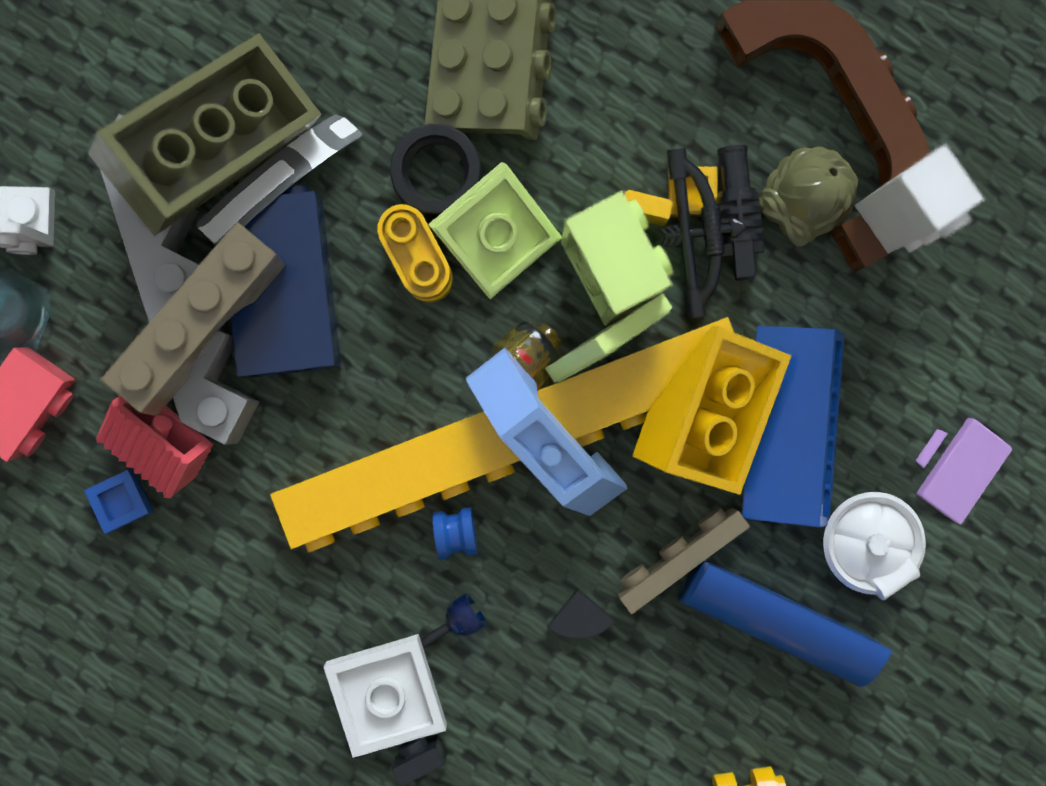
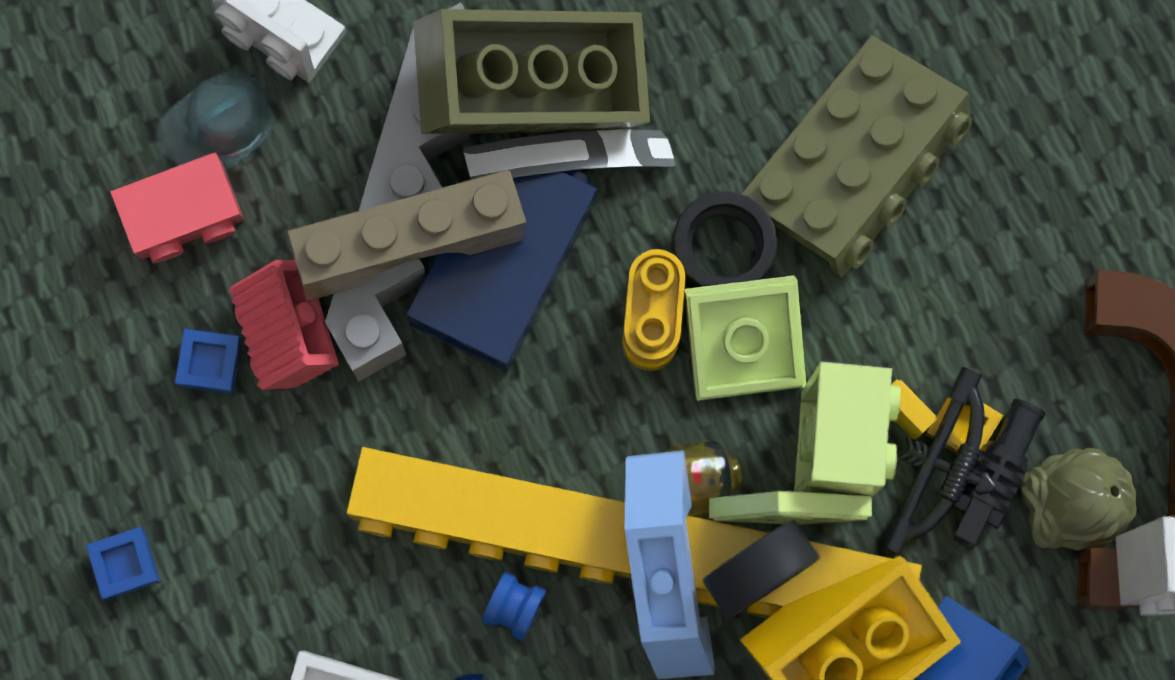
camera: 25 degrees right, 10 degrees down
(157, 684) = (123, 563): none -> blue plate
(617, 400) = (760, 568): none -> black tyre

